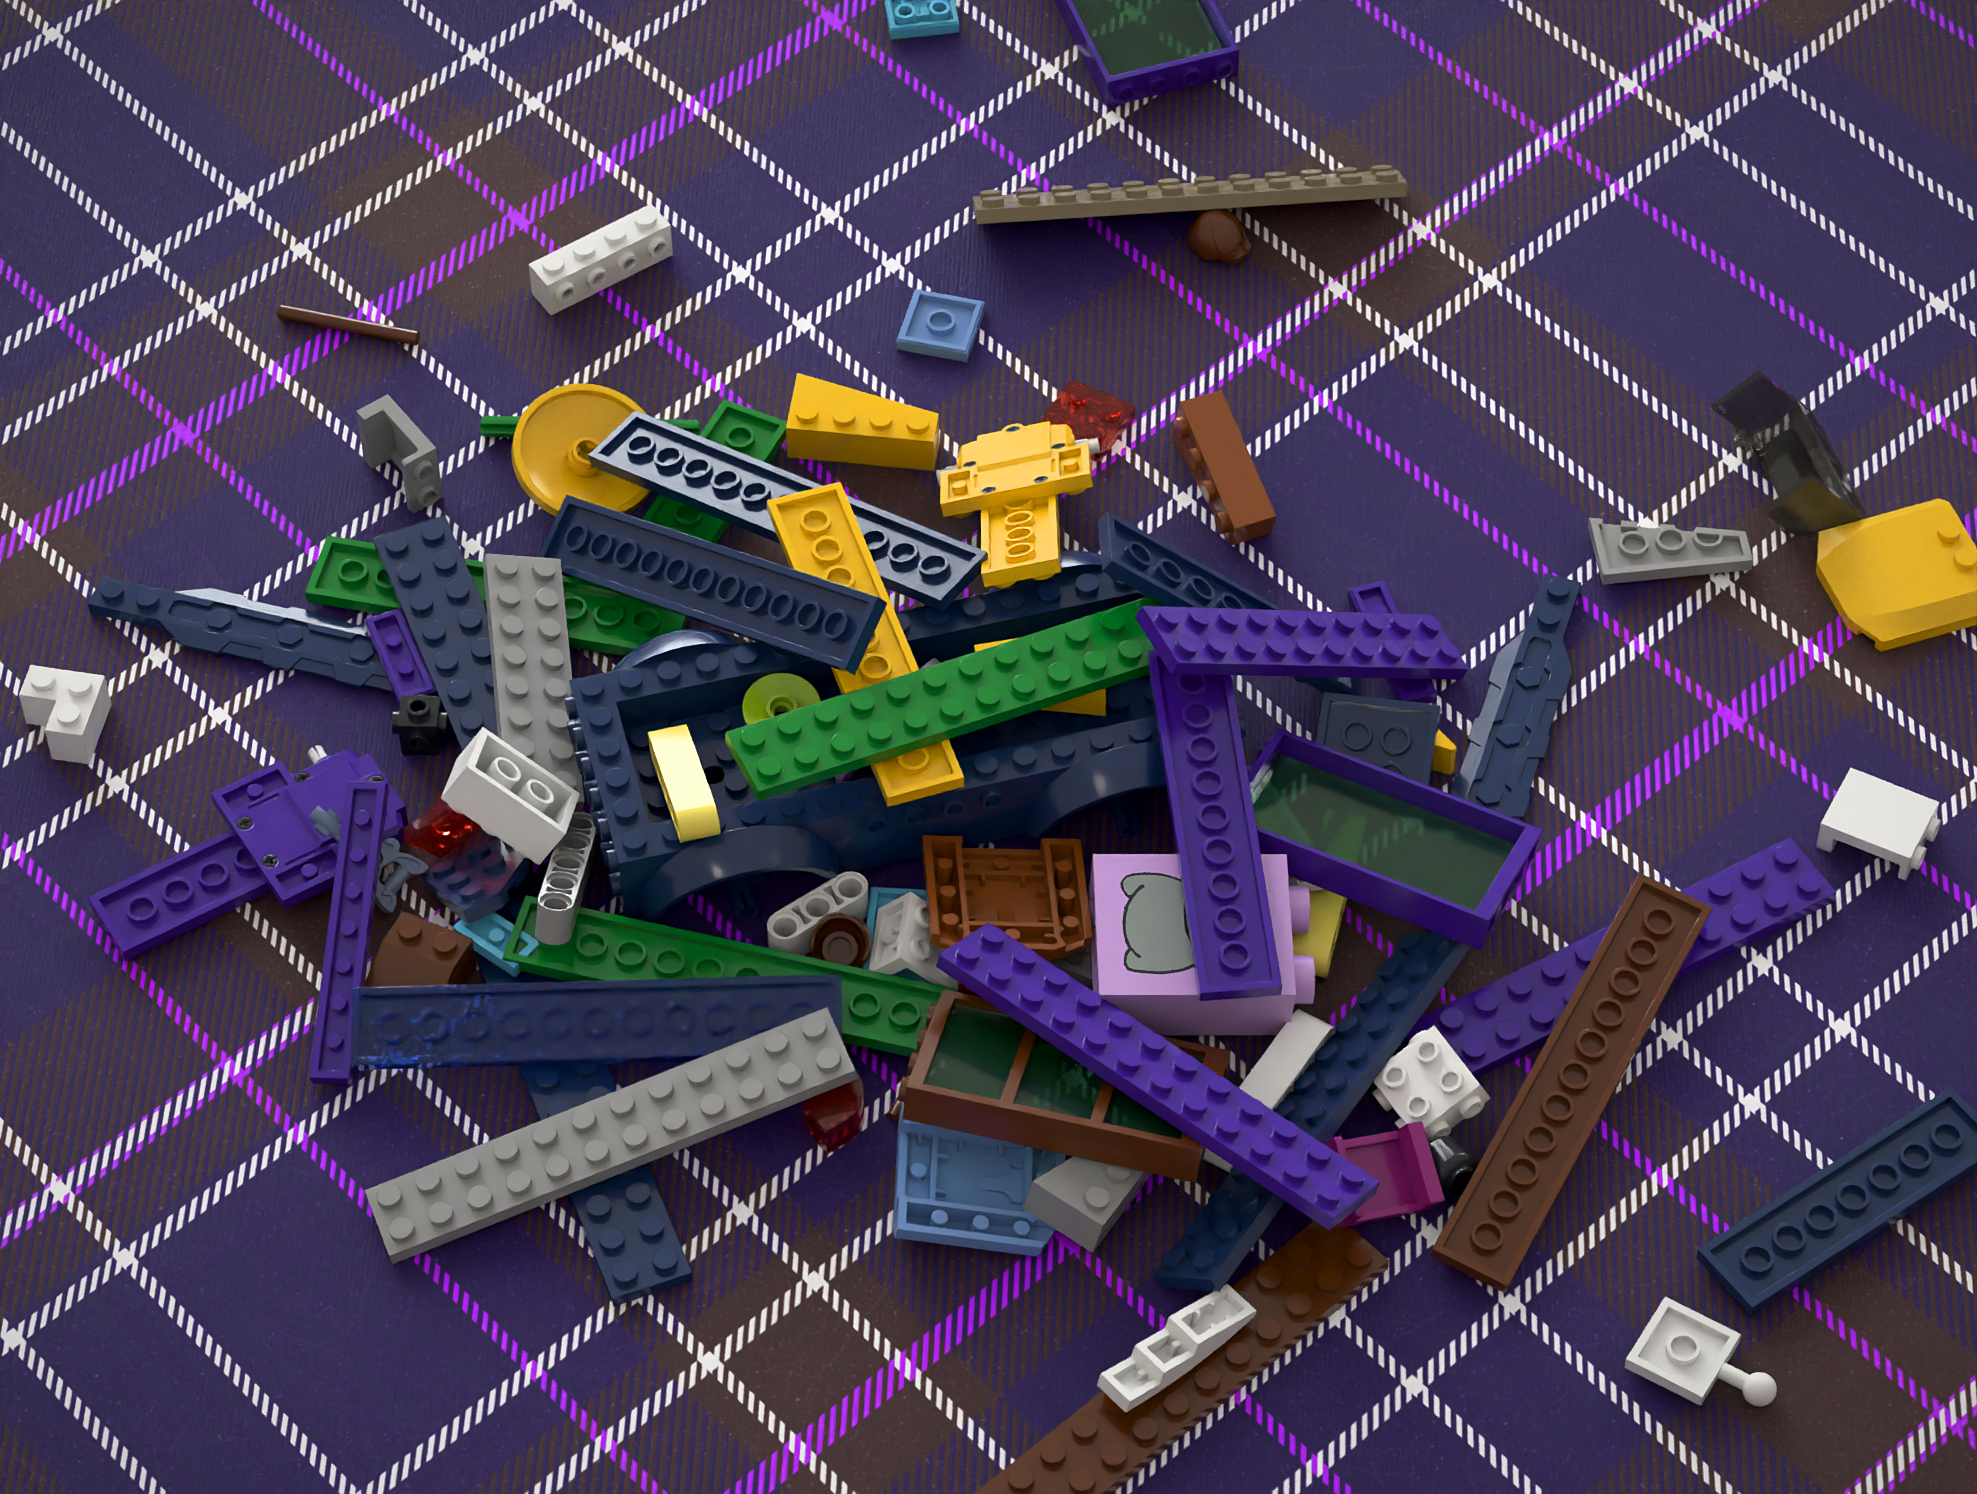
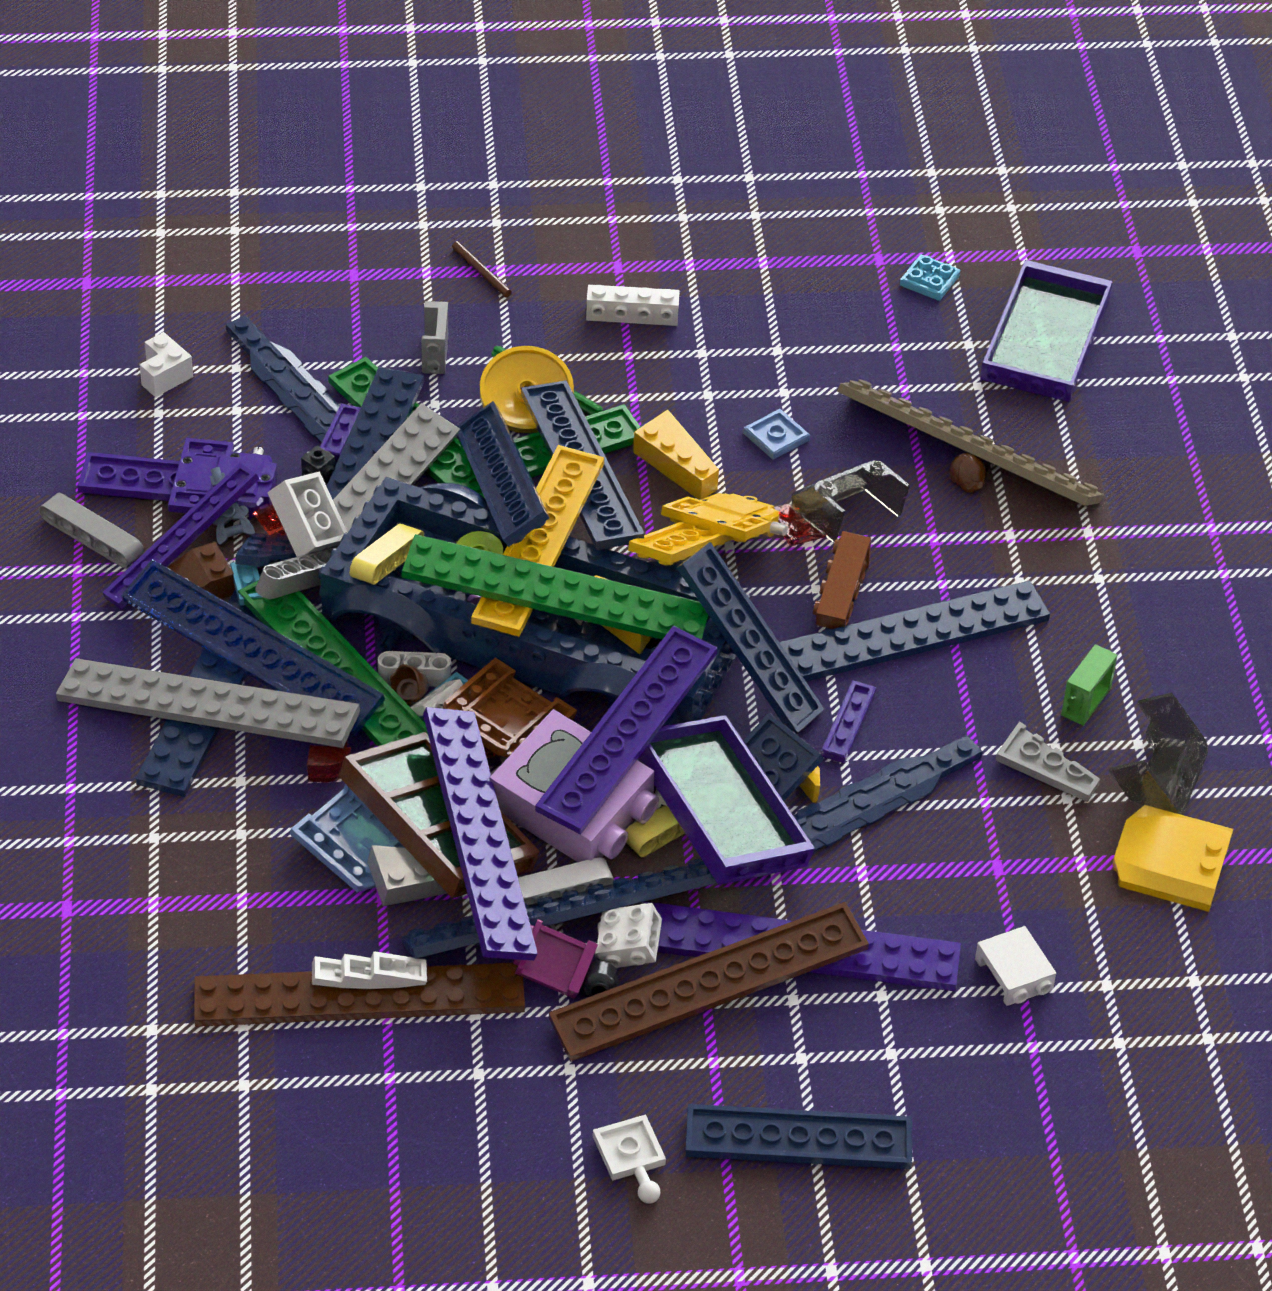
camera: 35 degrees right, 5 degrees down
(203, 1001) = (91, 530): none -> light grey beam
(1100, 376) = (818, 501): none -> clear smoke windscreen
(1300, 643) = (771, 677): dark purple plate -> none
(1360, 473) = (916, 631): none -> plate
(1628, 421) = (1089, 684): none -> bright green window

